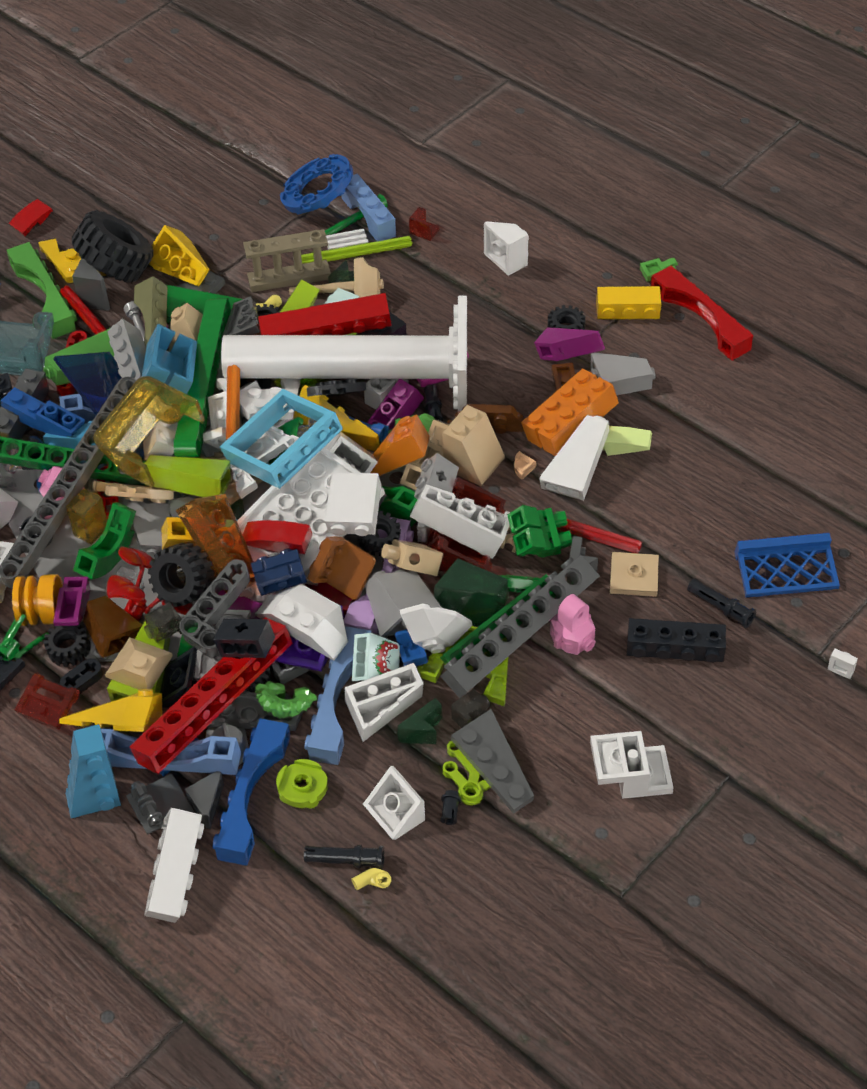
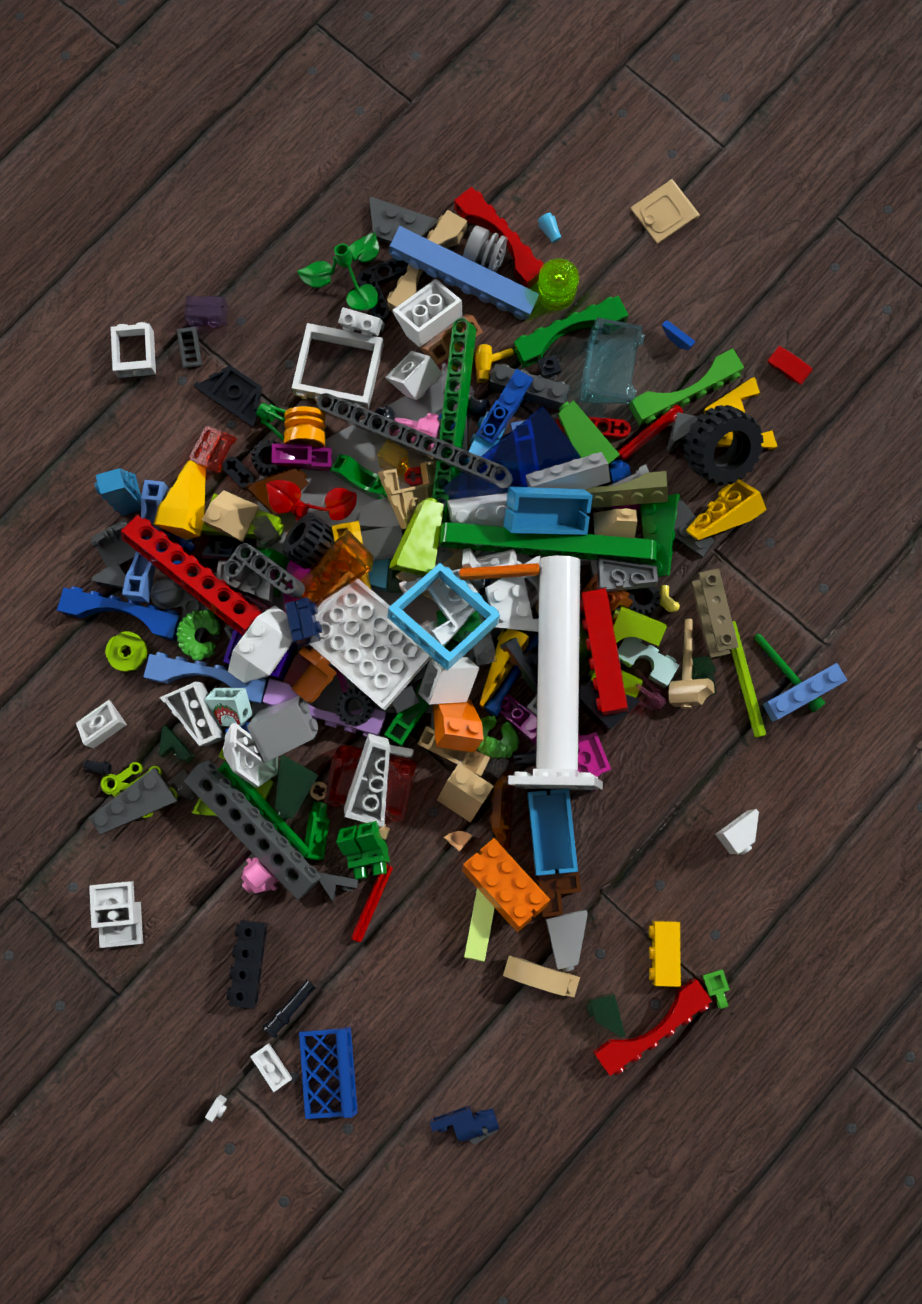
camera: 90 degrees right, 30 degrees up
(135, 418) = (447, 473): clear yellow windscreen -> none
(173, 865) = (52, 558): white wedge -> none
(244, 638) = (232, 586): black brick -> none
(277, 535) = (337, 618): red slope -> none
(334, 164) = (849, 622): blue plate -> none
(346, 239) = (763, 655): white tile -> none
(353, 503) = (361, 682): white brick -> none
(357, 856) = (58, 695): black pin -> none
(372, 877) = (42, 707): light yellow arm -> none
(413, 556) = (326, 736): tan torso -> none
(420, 227) = (782, 749): clear red panel -> none
(436, 473) = (411, 757): light grey brick -> none
(512, 380) = (552, 832): none -> dark azure piece
(563, 343) = (599, 886): magenta slope -> none
(566, 315) = (647, 879): black tyre -> none
(577, 460) = (447, 888): white slope -> none
(634, 574) = (327, 933): tan plate -> none
(660, 390) = (541, 977): none -> tan arch
(692, 343) = (606, 1012): none -> clear green slope
(789, 616) = (271, 1067): none -> white plate
(819, 448) = (467, 1125): none -> dark blue plate

